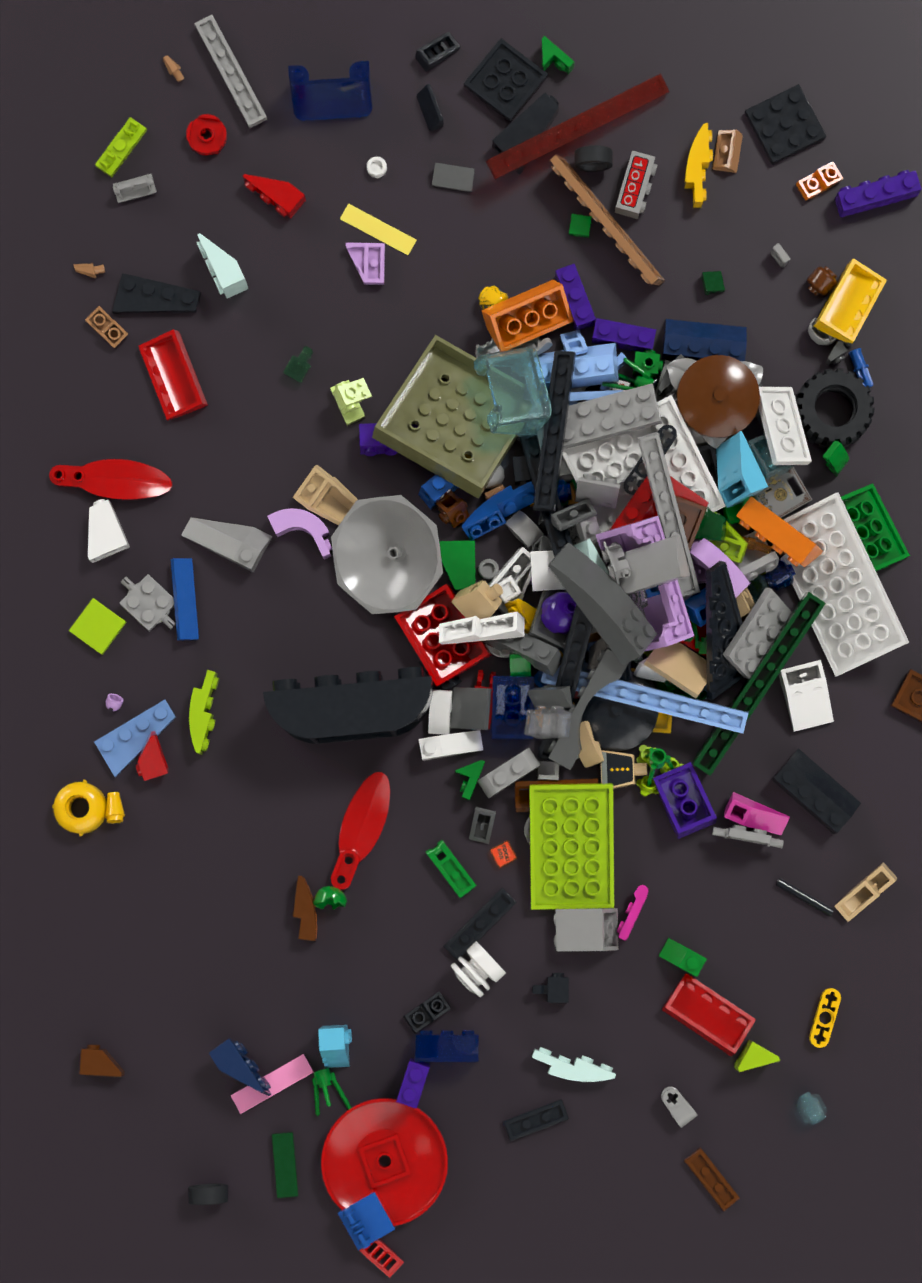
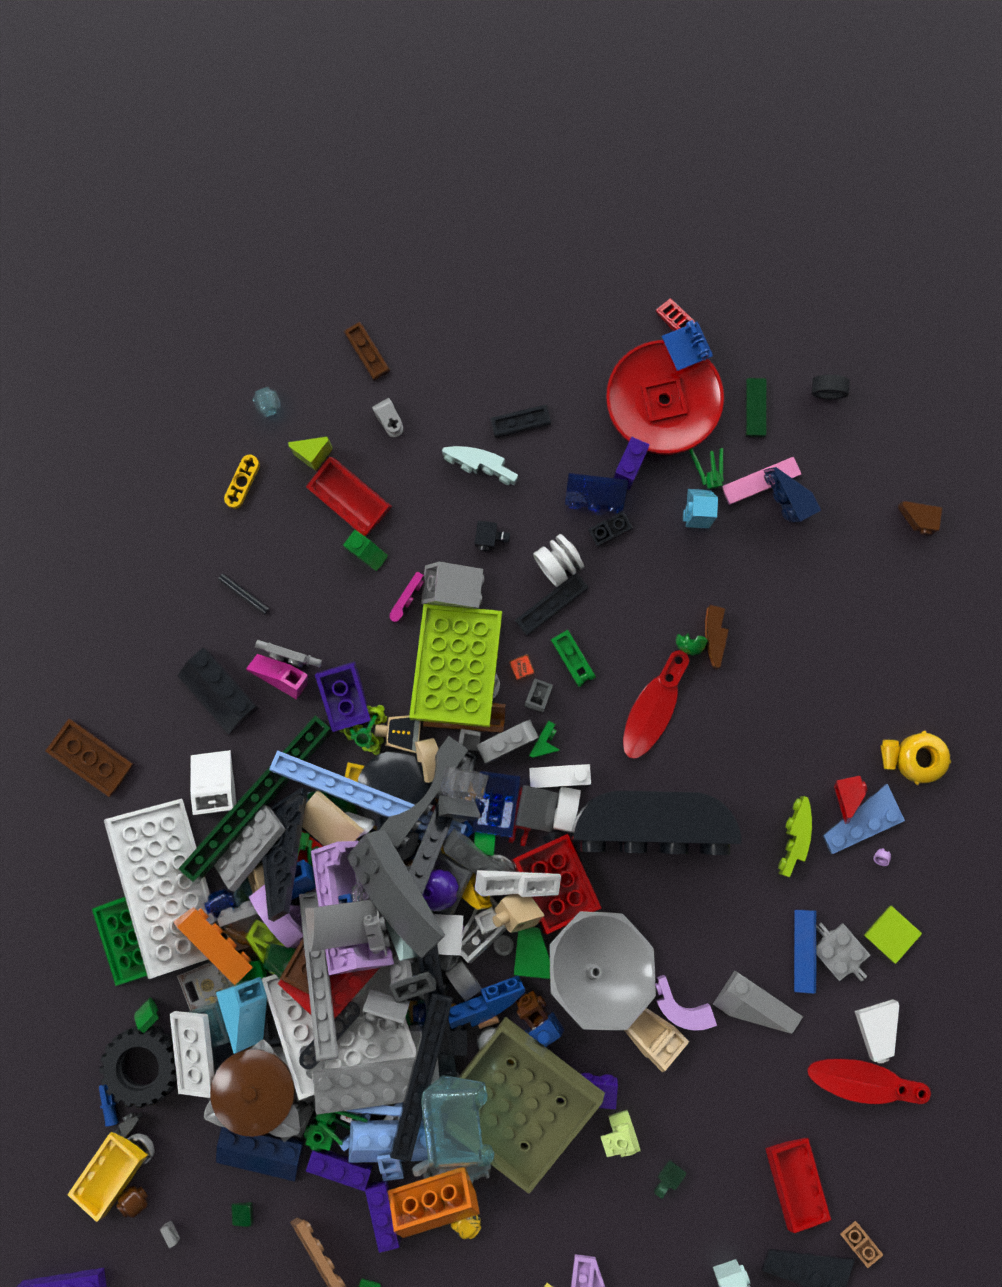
camera: 175 degrees left, 0 degrees up
(866, 892) = (185, 591): tan slope -> none

